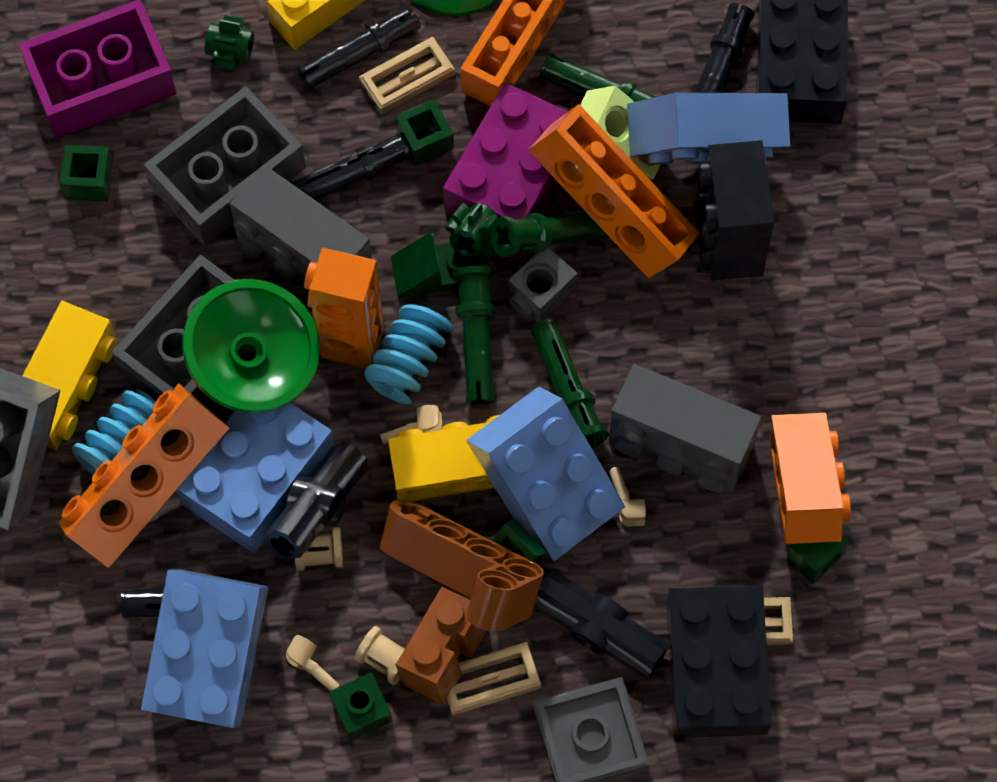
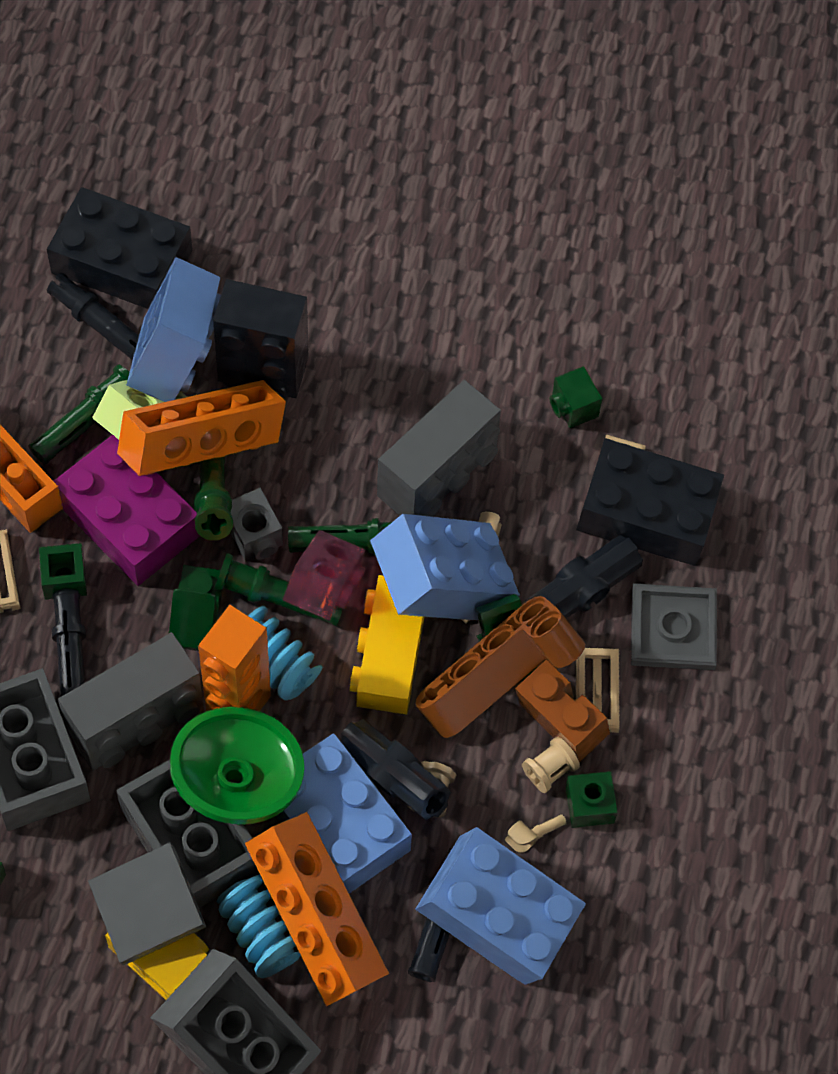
camera: 75 degrees left, 5 degrees down
(95, 321) = (147, 904): none -> dark grey tile
(428, 420) = (342, 662): tan hand -> none
(471, 229) = (186, 555): dark green gear -> none
(500, 364) = (325, 575): none -> clear pink brick
(808, 478) = (522, 374): brick -> none

